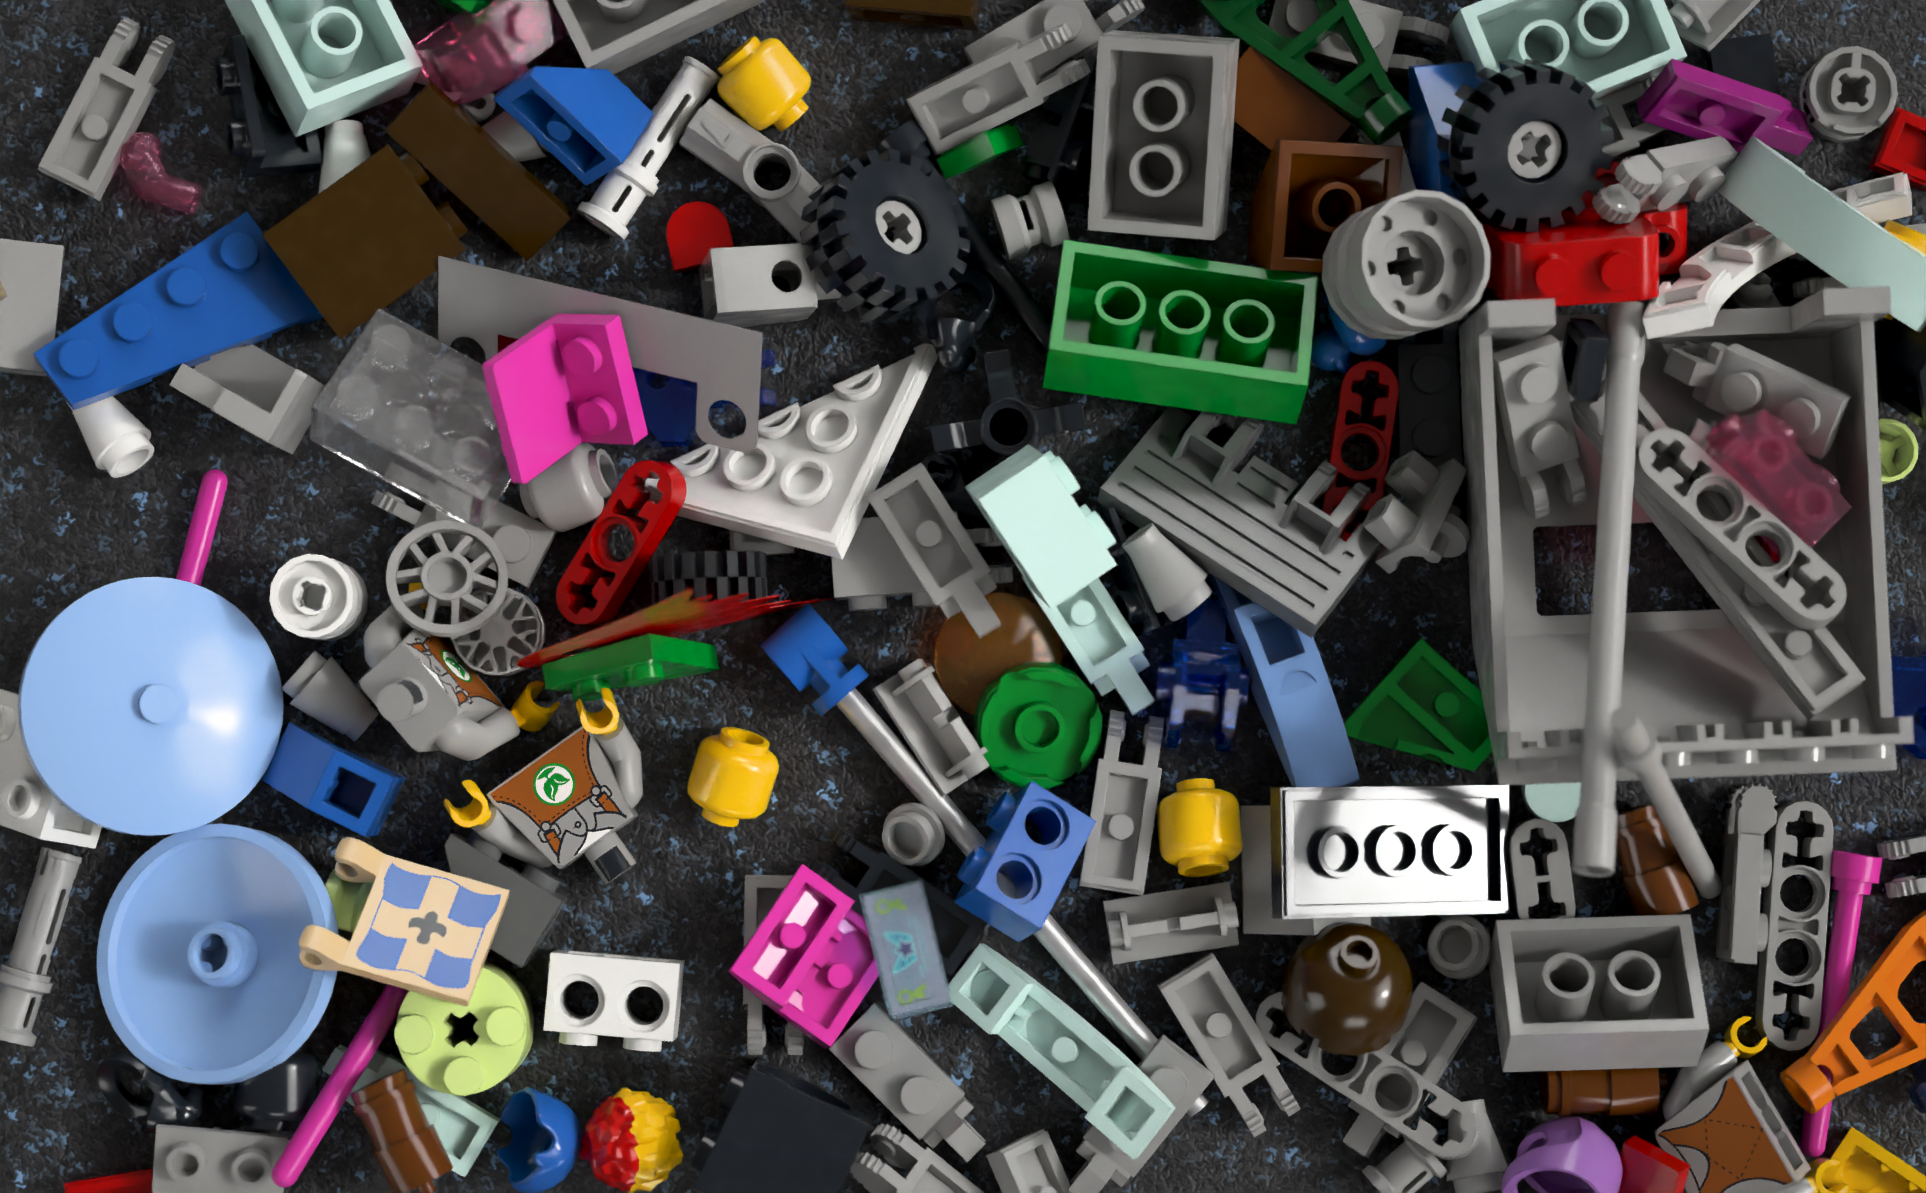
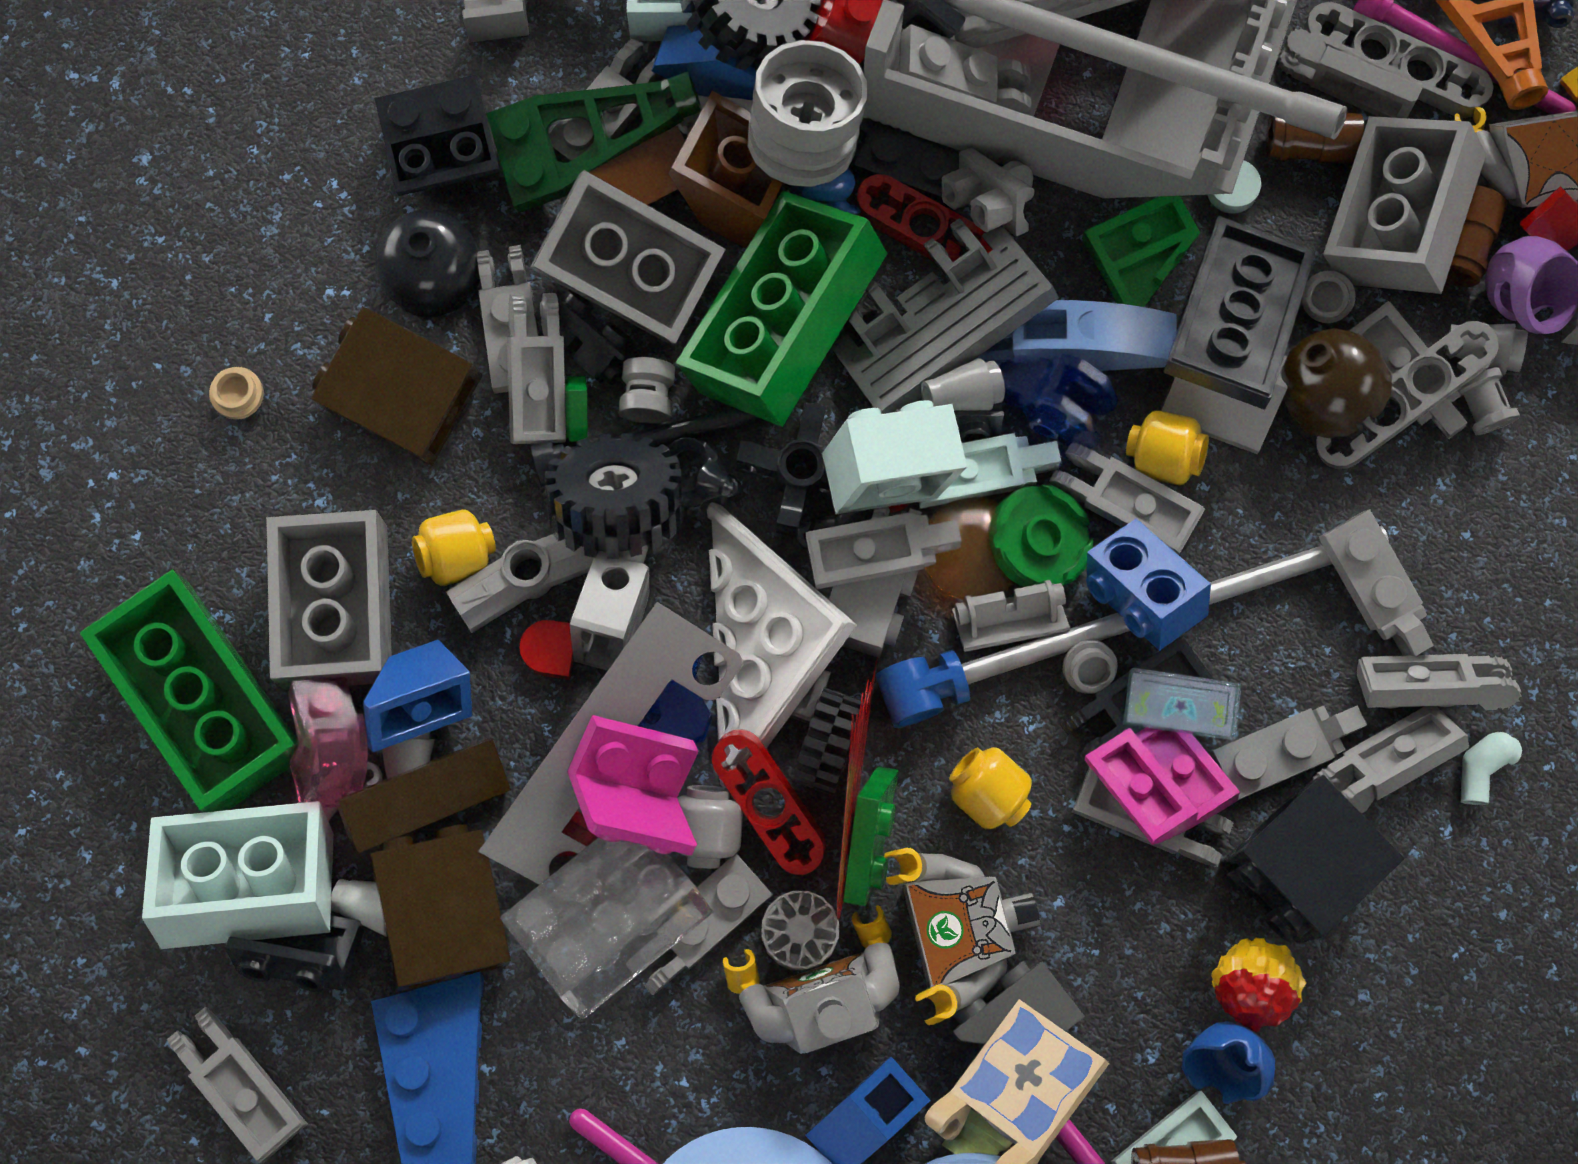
camera: 65 degrees left, 10 degrees down
(149, 179) = (308, 1073): clear pink arm -> none
(254, 393) = (523, 1054): light grey panel -> none
(318, 597) = (713, 1065): white wheel -> none
(330, 696) = (797, 1092): light grey cone -> none
(447, 578) = (743, 950): light grey wheel -> none
(469, 1066) = (1148, 1090): yellowish green brick -> none
(614, 981) = (1121, 947): white brick -> none
(635, 178) = (488, 689): white pin -> none
(1063, 1048) = (1307, 614): light aqua slope -> none
(1171, 922) = (1232, 499): light grey hinge -> none
(1225, 1037) = (1337, 492): light grey hinge -> none
(1555, 870) = (1296, 217): light grey beam -> none
(1643, 755) = (1260, 61): light grey bar -> none

